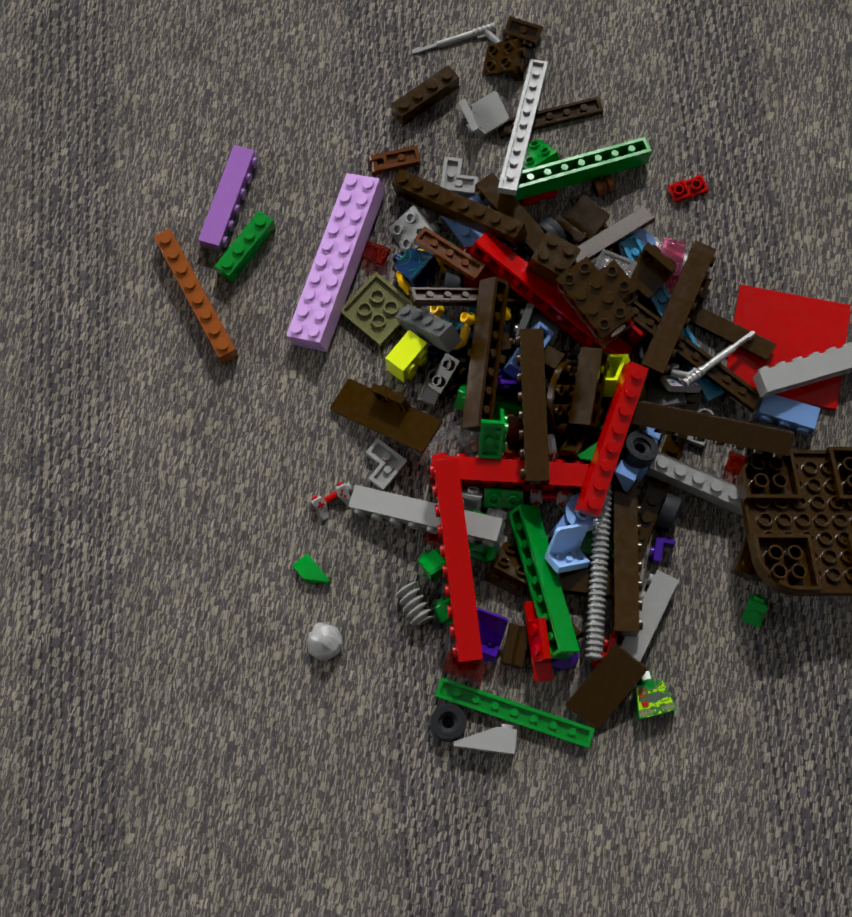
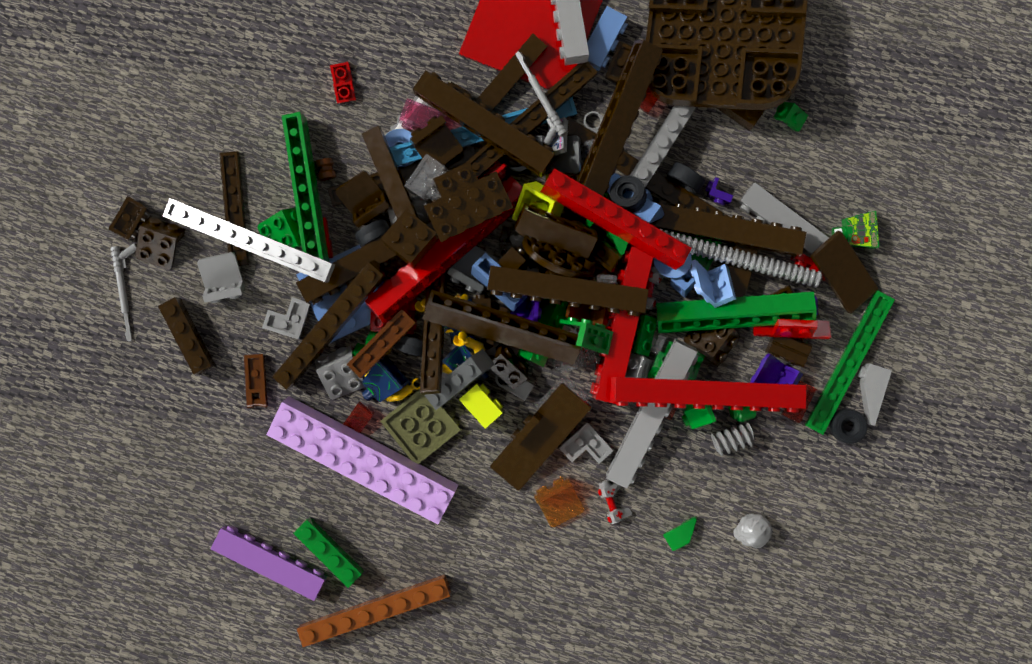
camera: 80 degrees left, 15 degrees up
(325, 446) = (558, 501): none -> clear orange bracket

